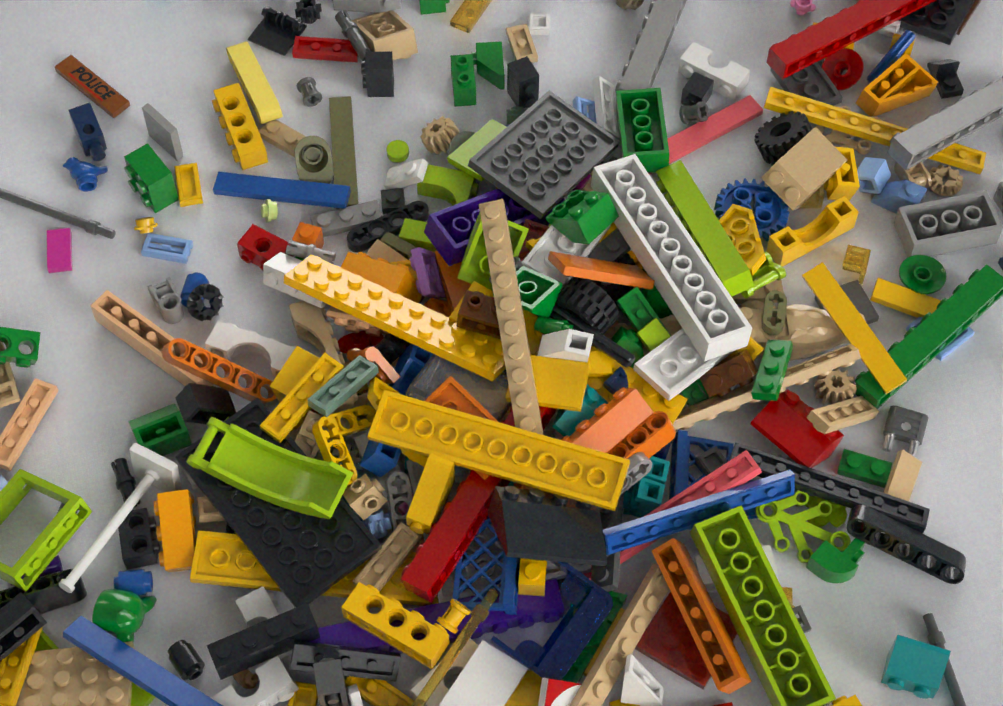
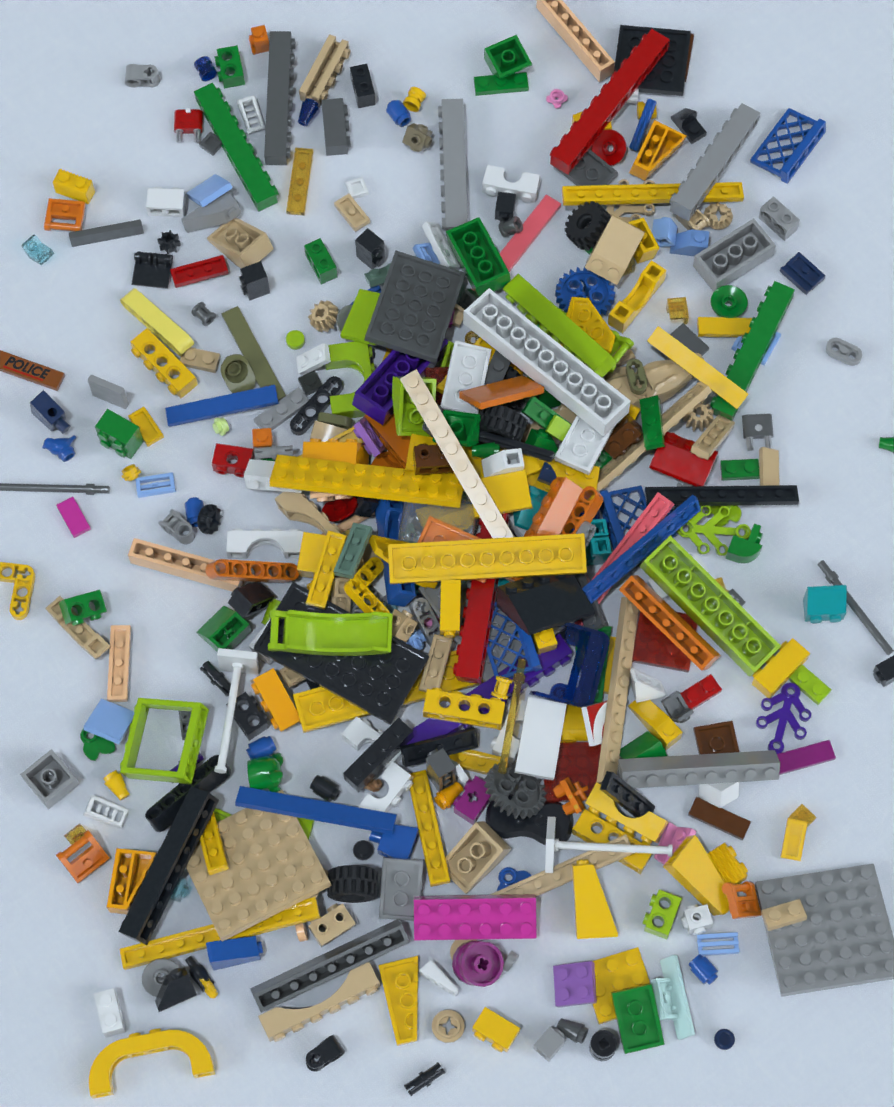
camera: 20 degrees left, 10 degrees up
(350, 31) = (214, 250): dark grey pin -> none
(386, 371) = (364, 519): orange plate -> none
(490, 62) = (335, 238): green slope -> none
(583, 215) = (471, 353): green slope -> none
(710, 460) = (632, 506): dark grey tile -> none
(894, 542) = (789, 517): black beam -> none

